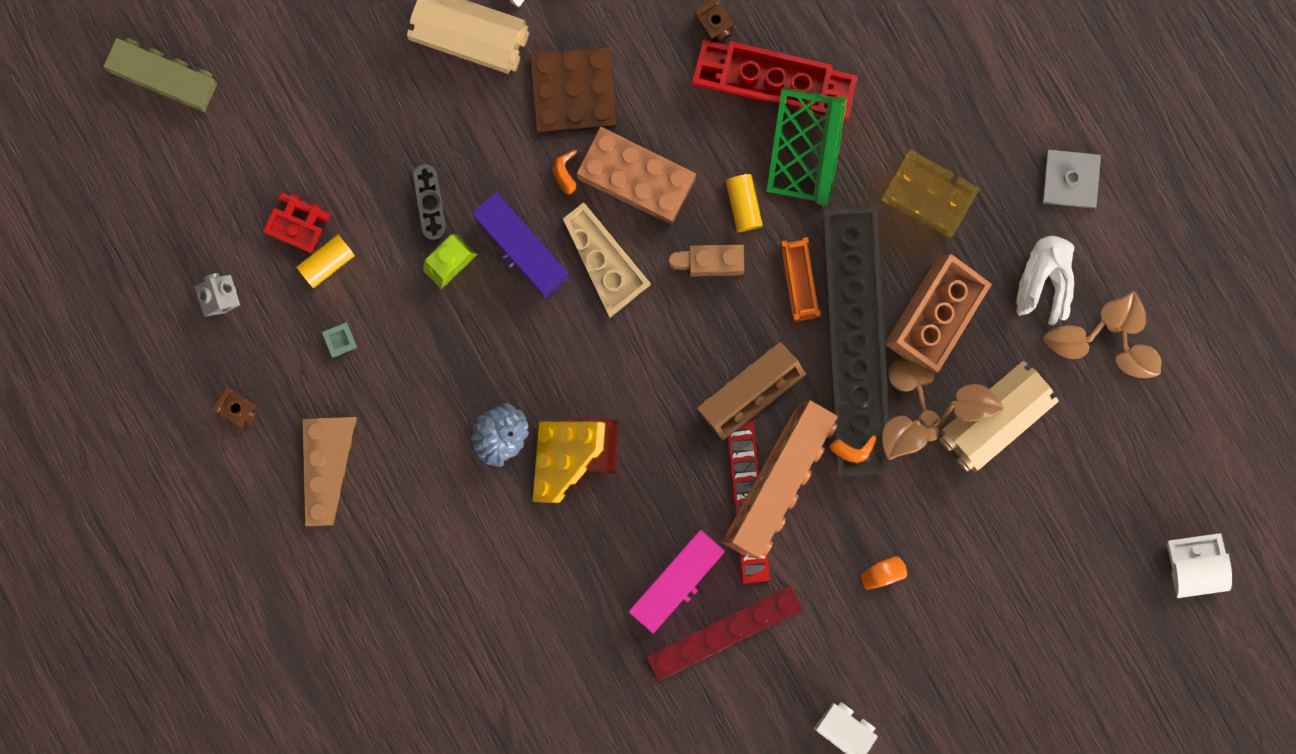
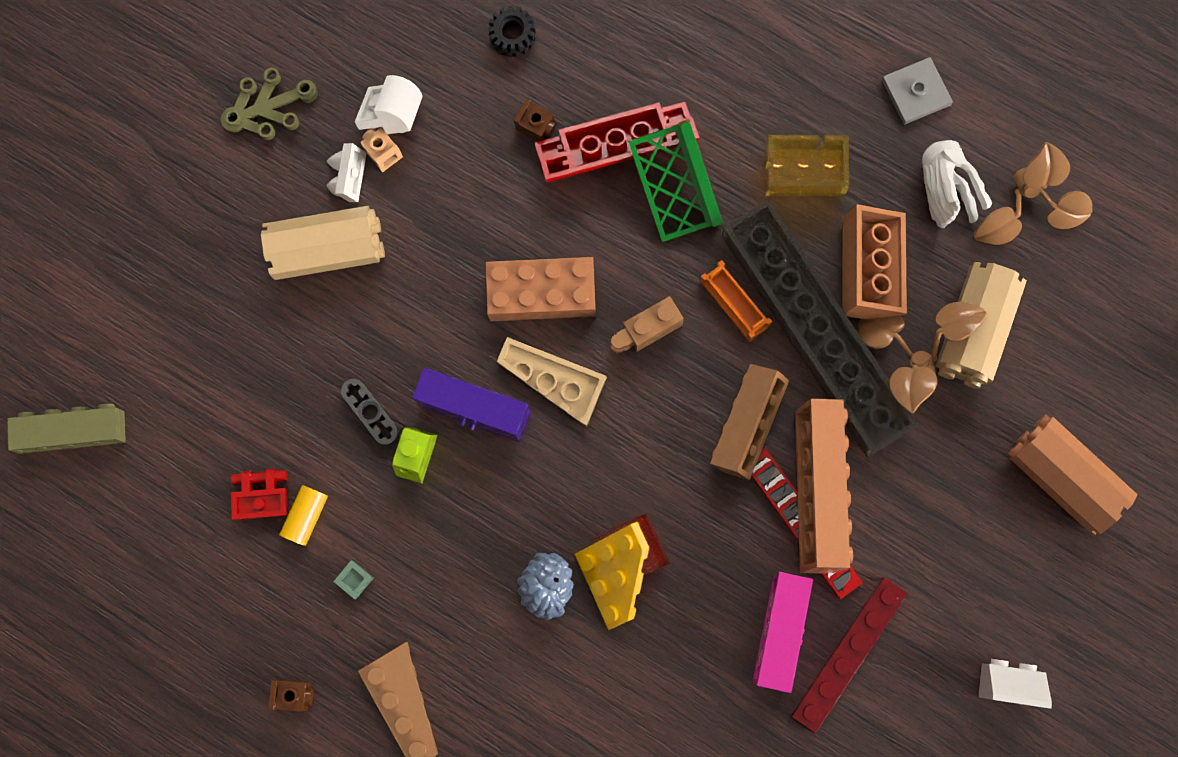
camera: 20 degrees left, 5 degrees down
(217, 294) = (219, 600): light grey brick -> none
(560, 174) = (474, 324): orange hair -> none
(573, 90) = (444, 246): reddish brown plate -> none
(744, 203) = (648, 262): yellow brick -> none
(851, 454) = (874, 427): orange hair -> none
(884, 573) = (960, 520): orange hair -> none
(998, 586) = (1072, 475): none -> nougat brick

